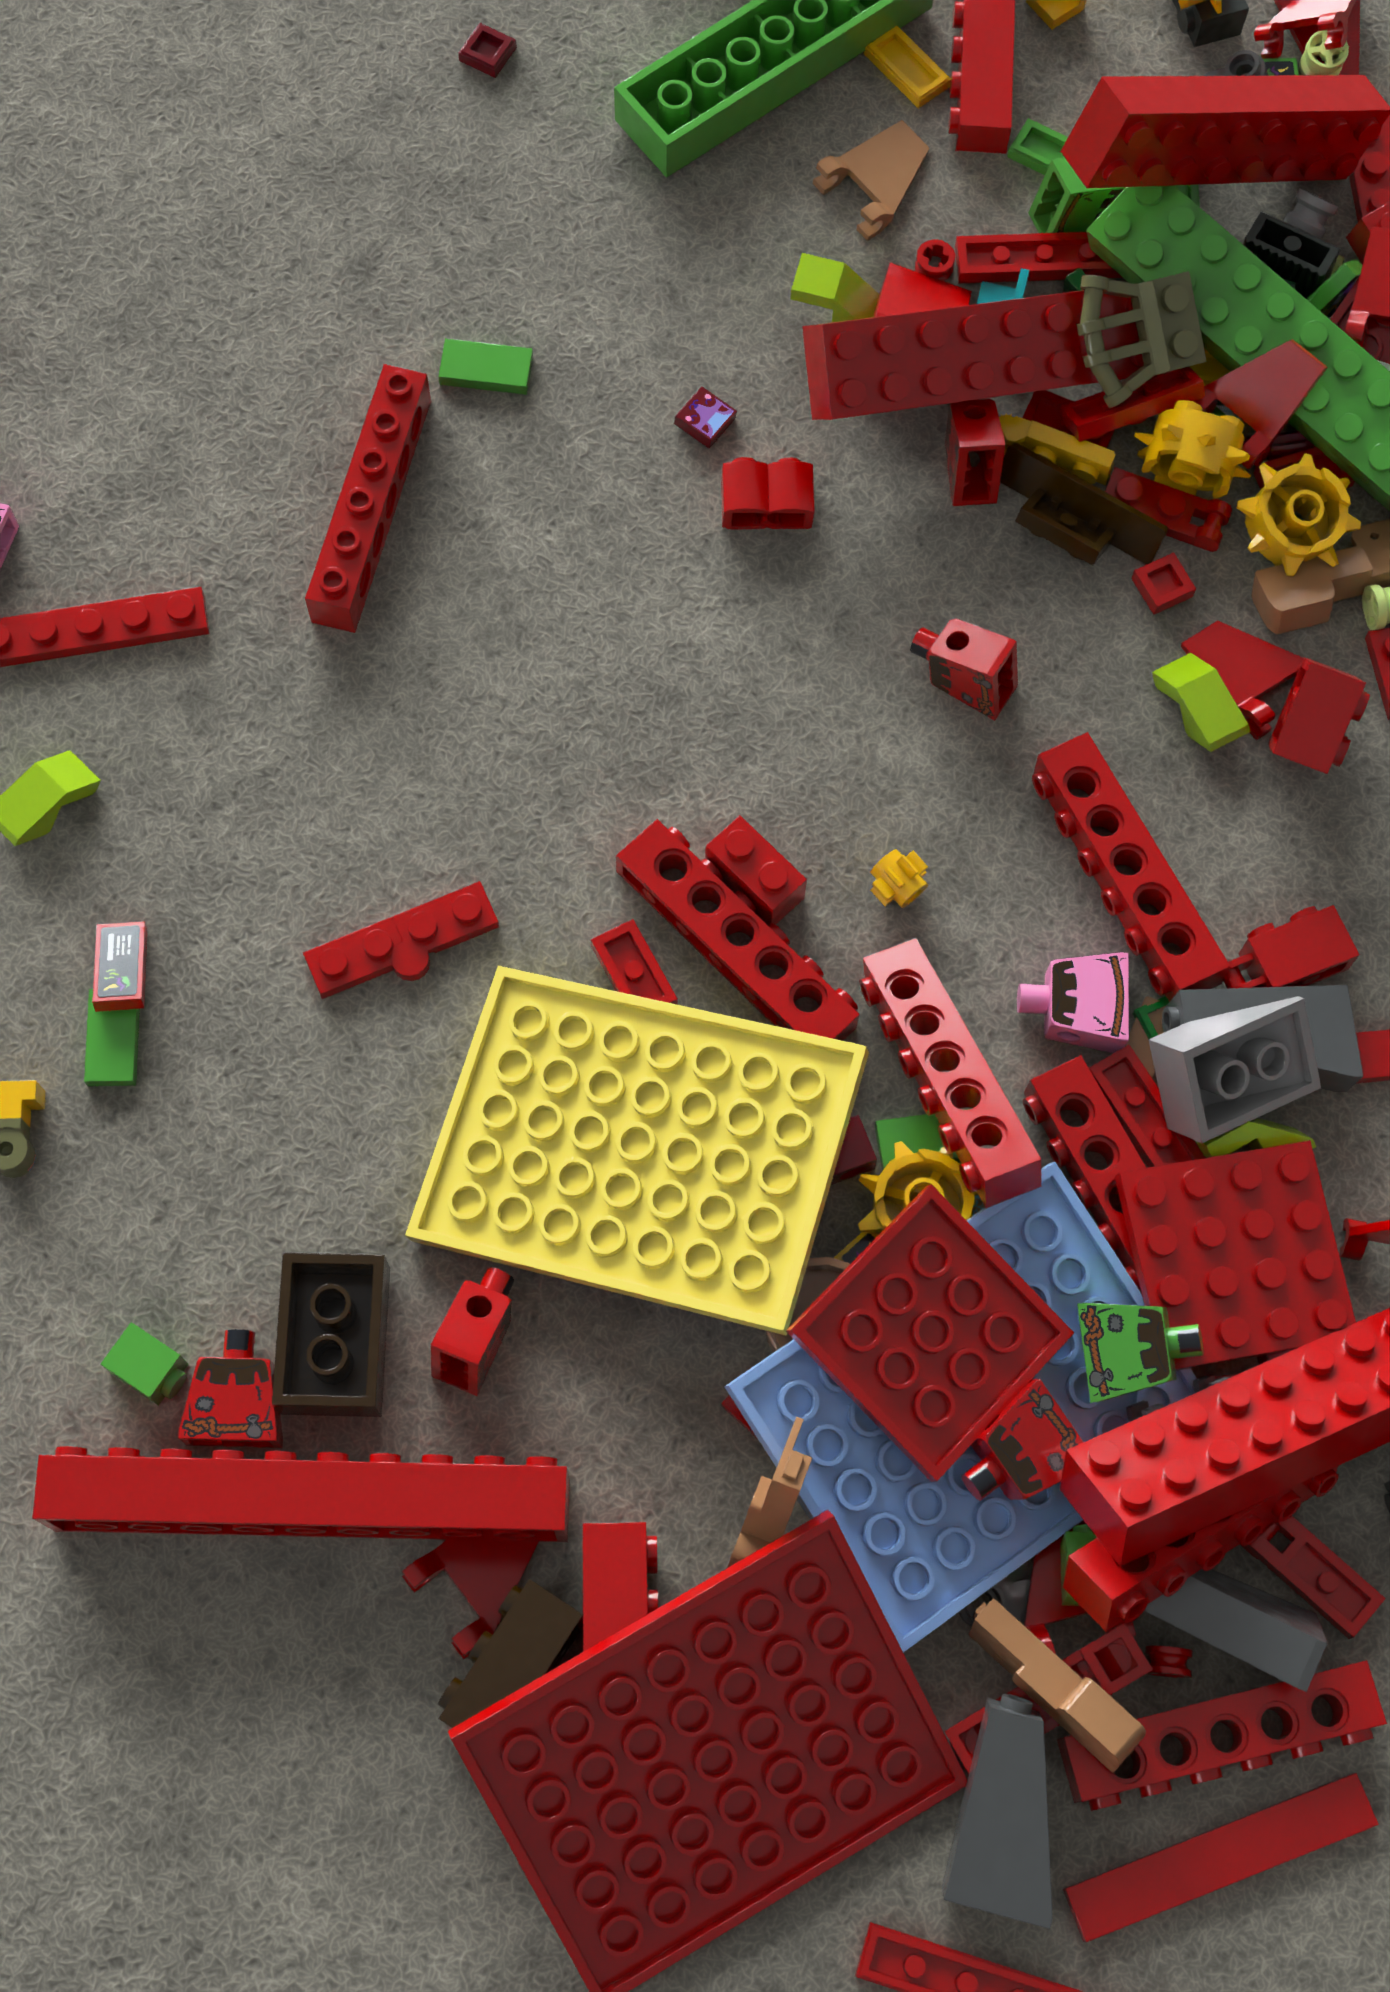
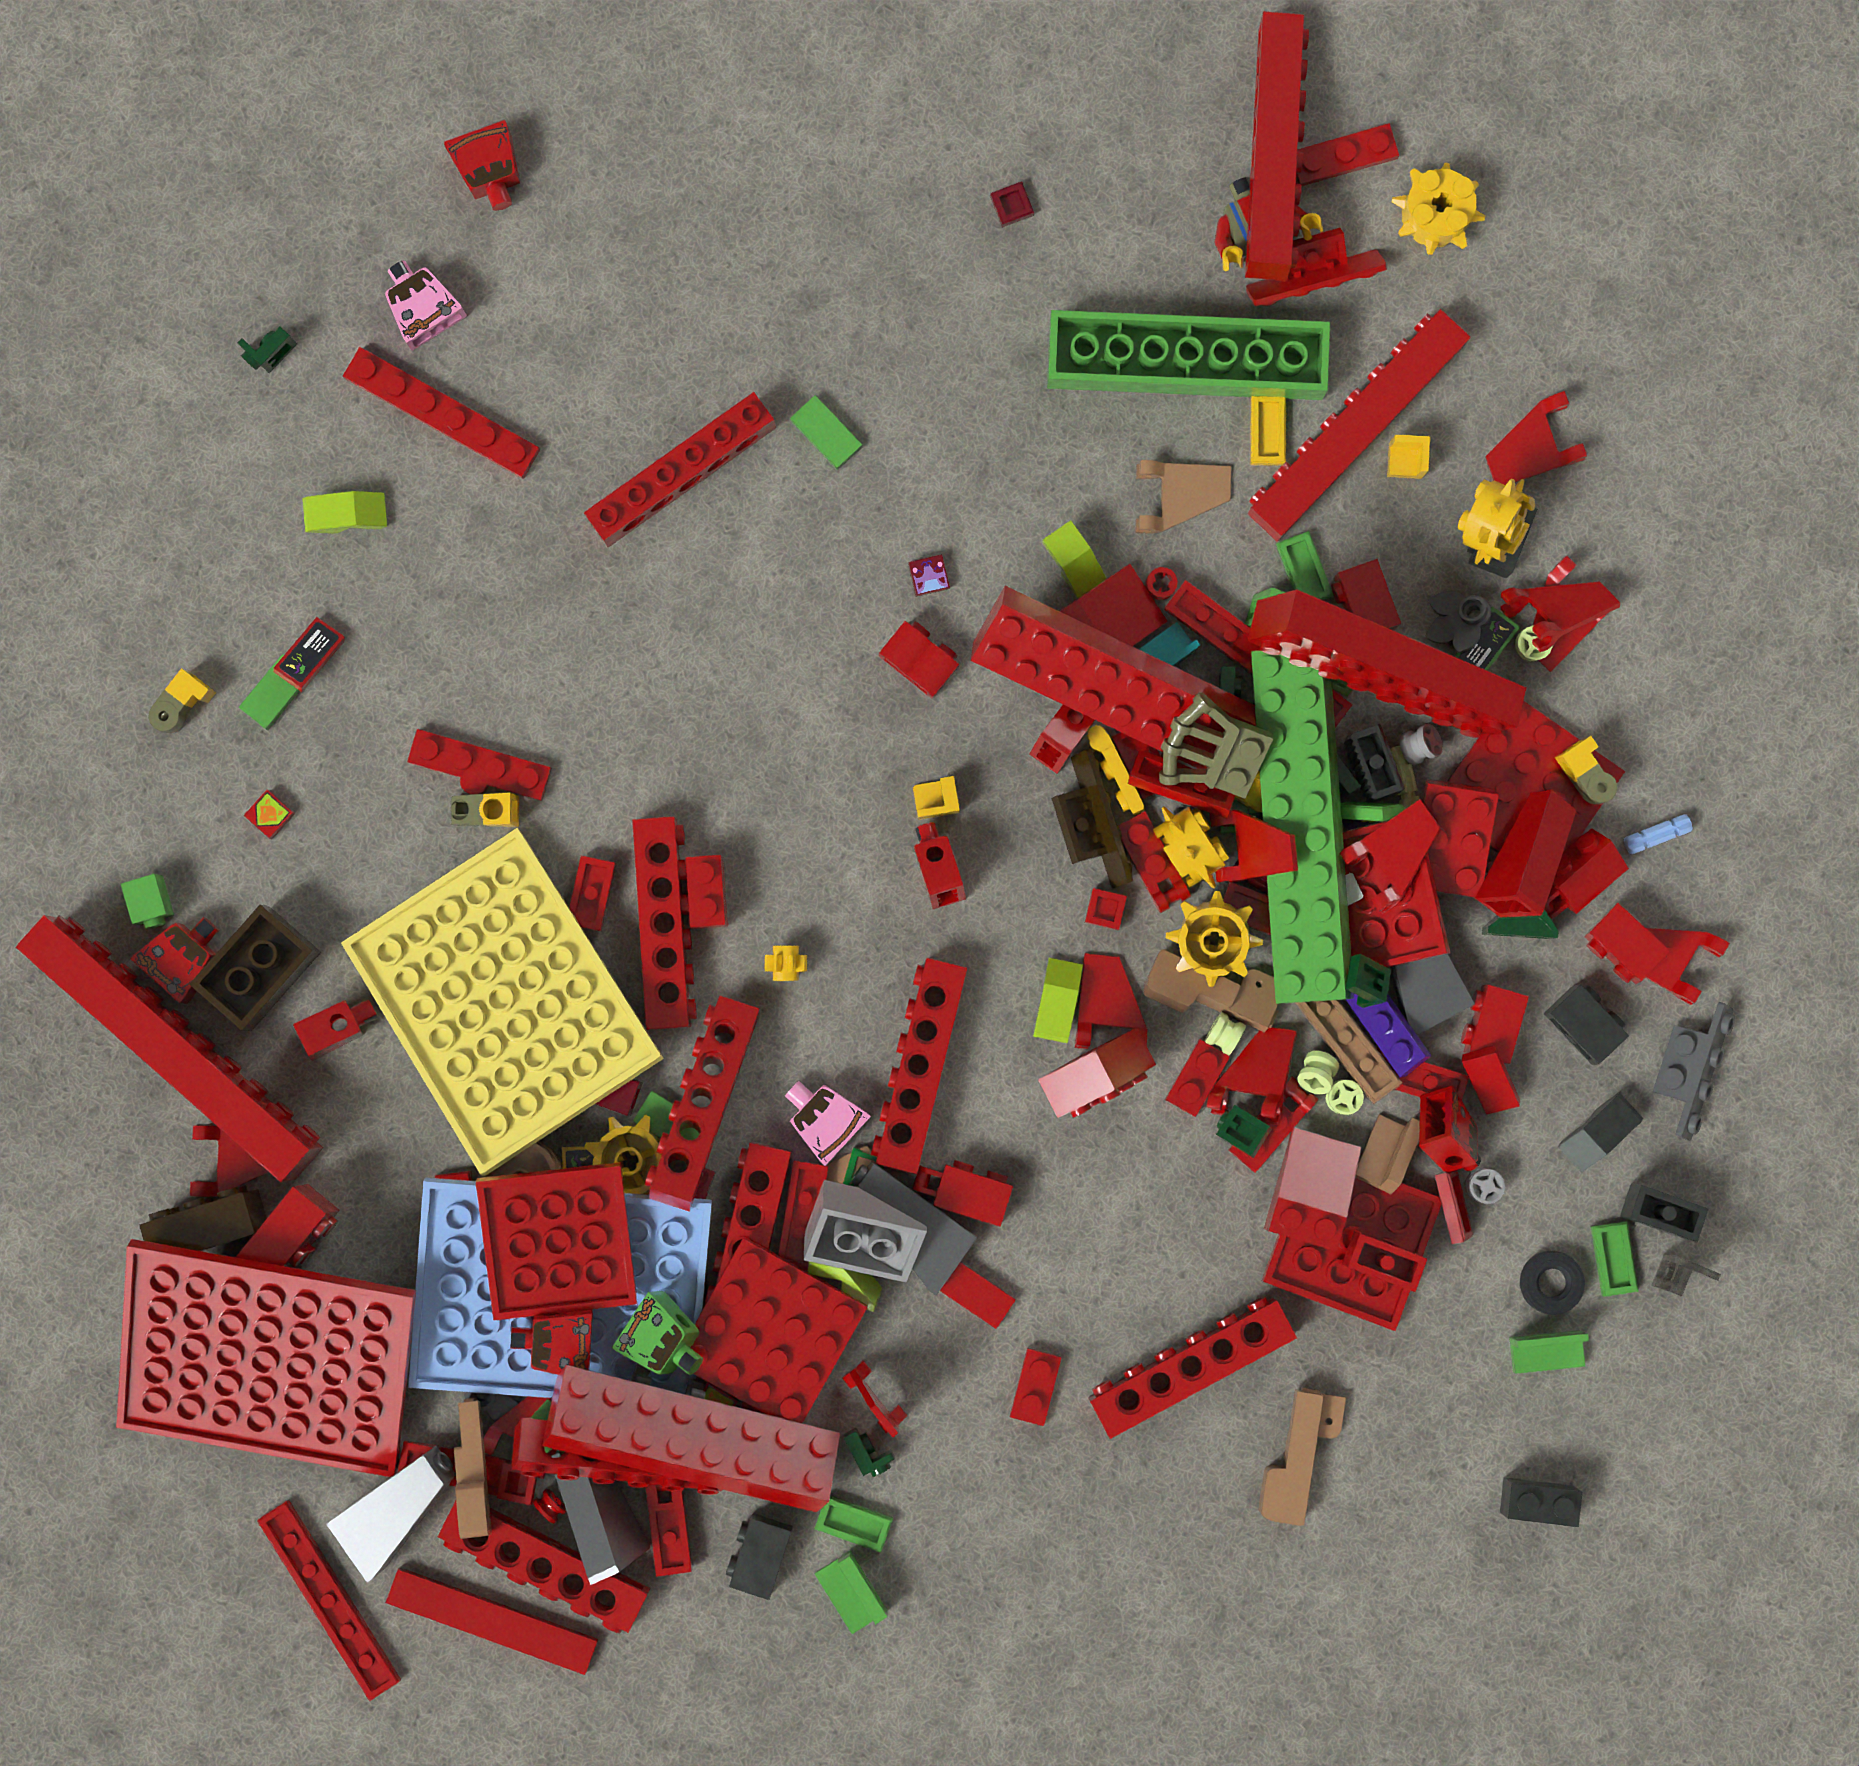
camera: 40 degrees right, 15 degrees up
(210, 1168) = (269, 814): none -> tile
(446, 976) = (485, 810): none -> leg
(773, 1500) = (393, 1262): medium nougat piece -> none
(906, 608) = (936, 798): none -> yellow panel

